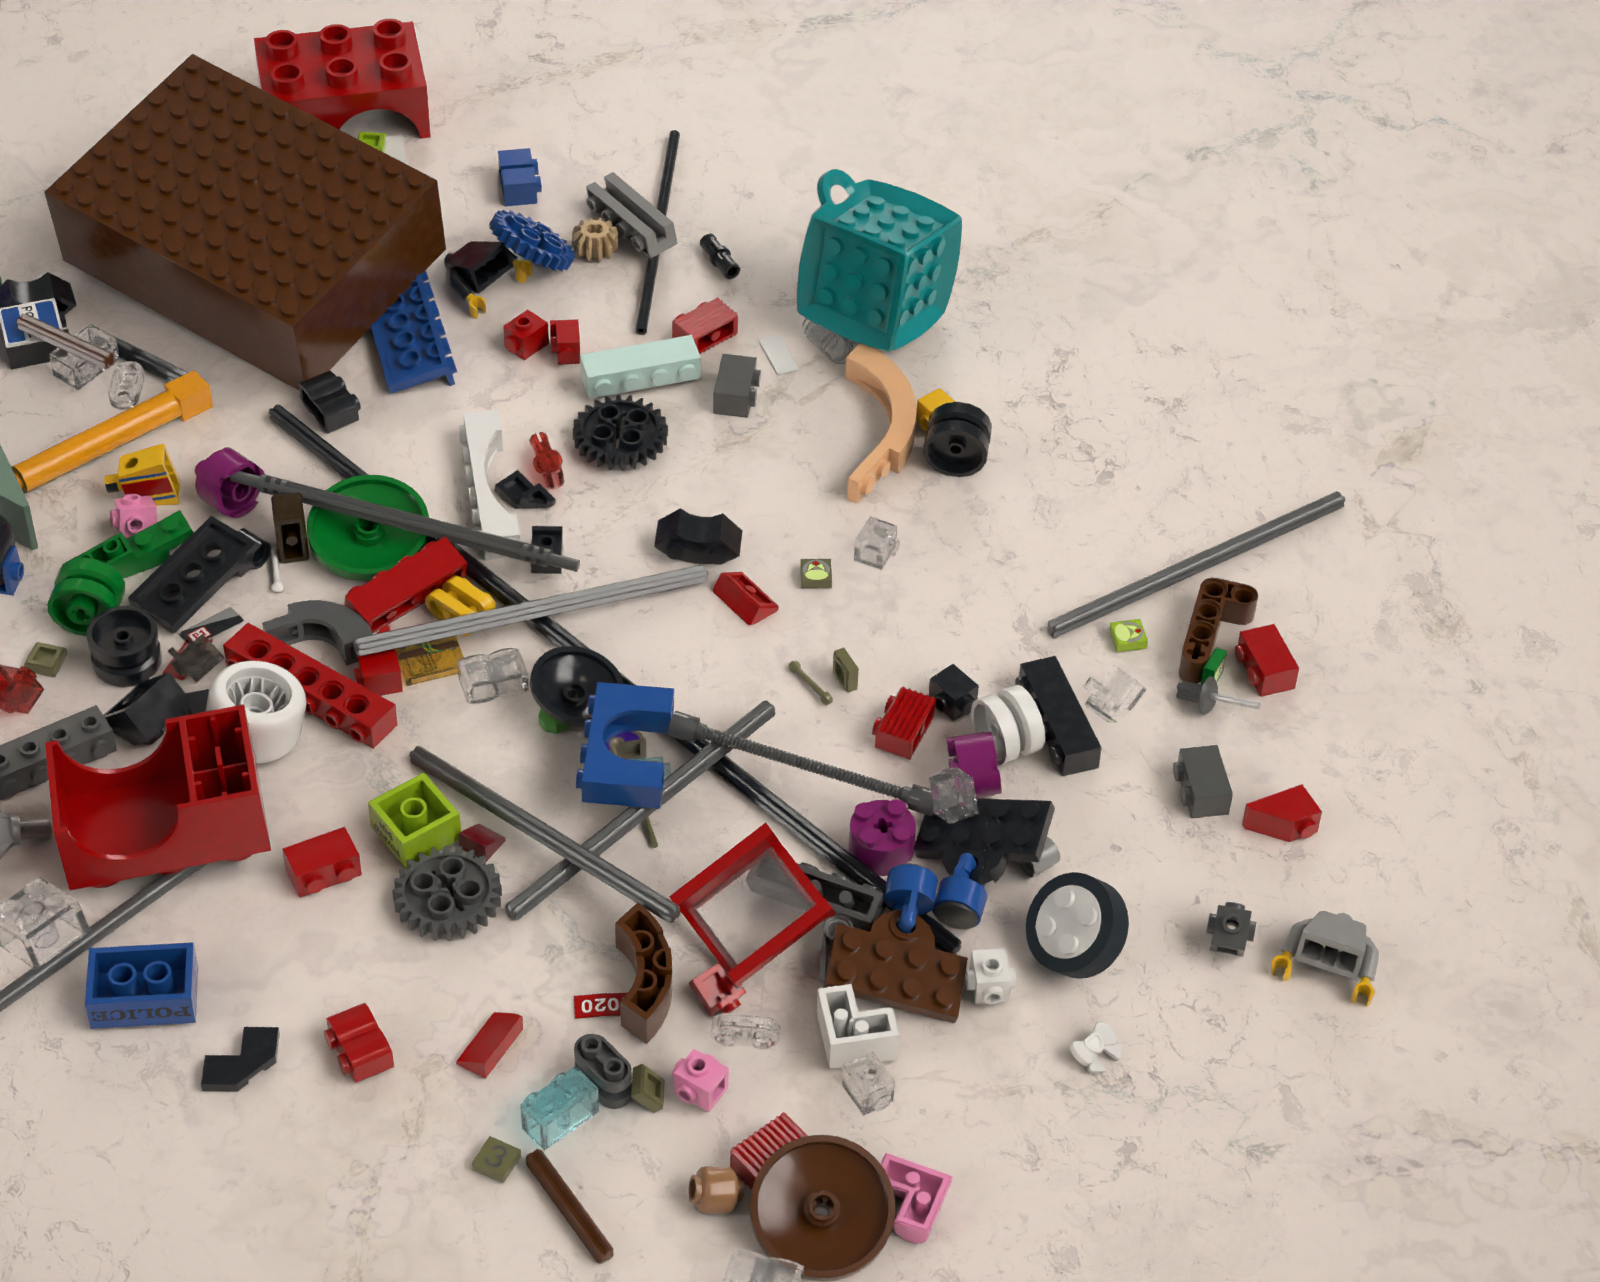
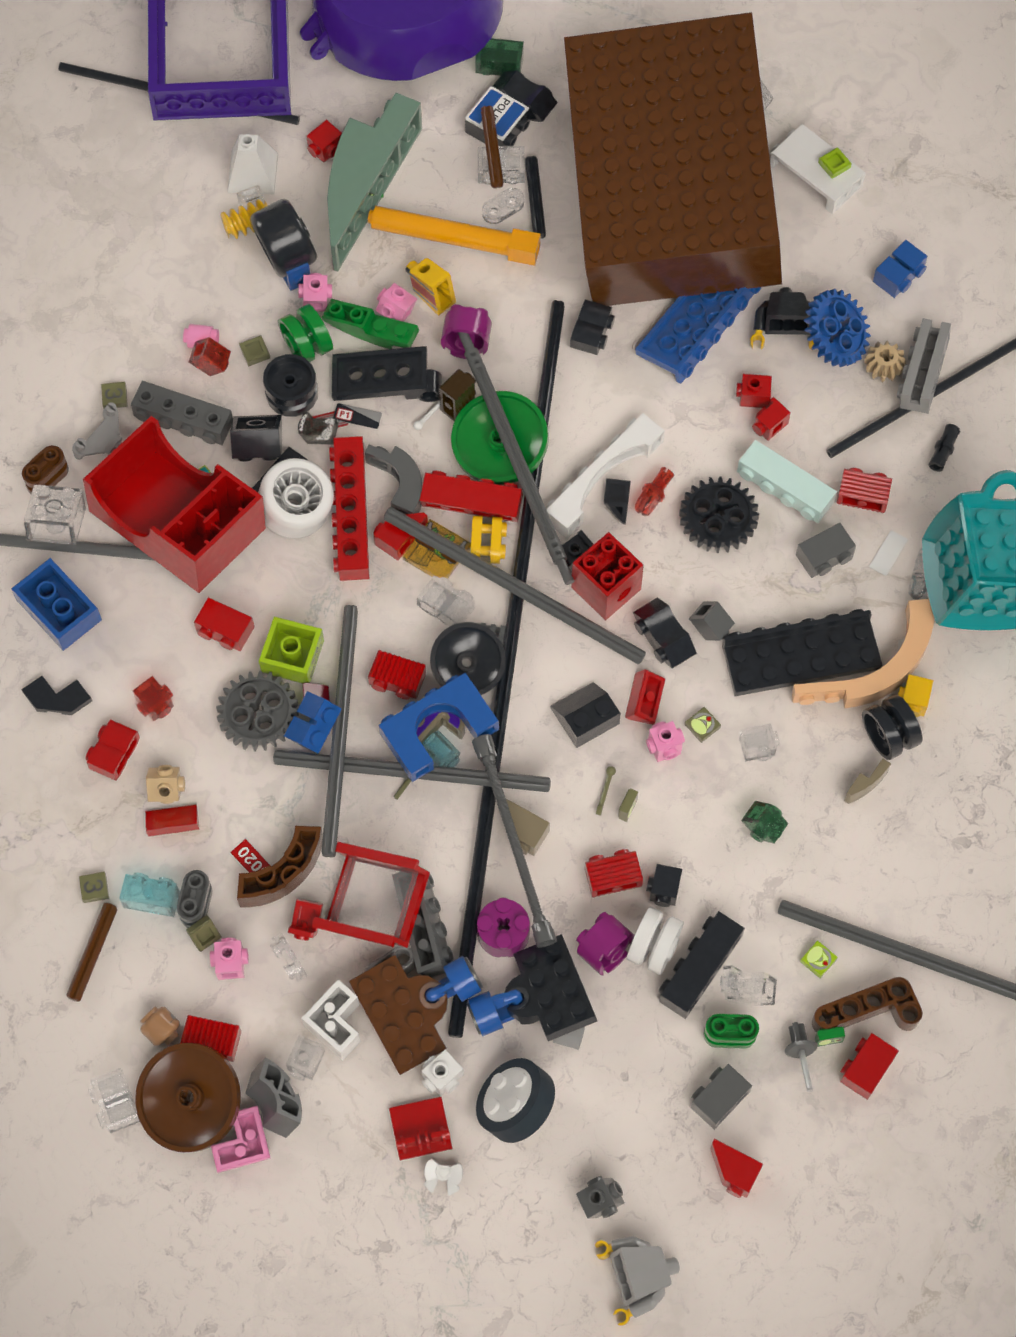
camera: 55 degrees right, 20 degrees up
(42, 565) = (315, 291): none -> bright pink brick
(340, 972) = (153, 699): none -> clear red brick
(347, 71) = (874, 93): red piece -> none
(448, 1017) = (164, 784): none -> tan brick
(520, 852) = (315, 732): none -> blue piece
(528, 758) = (397, 675): none -> red brick
(601, 533) = (607, 576): none -> red brick
(719, 643) = (586, 714): none -> black slope
(723, 495) = (712, 621): none -> dark grey brick
(800, 744) = (529, 827): none -> dark tan arch
(808, 603) = (661, 746): none -> bright pink brick
(814, 465) = (801, 652): none -> black bracket
(905, 1133) = (275, 1098): none -> dark grey brick
(953, 795) = (553, 951): clear brick -> none
(961, 582) = (764, 822): none -> clear green brick
(988, 494) = (864, 785): none -> dark tan slope
(1030, 1036) = (420, 1128): none -> red hinge
(1145, 733) = (731, 1031): none -> green brick

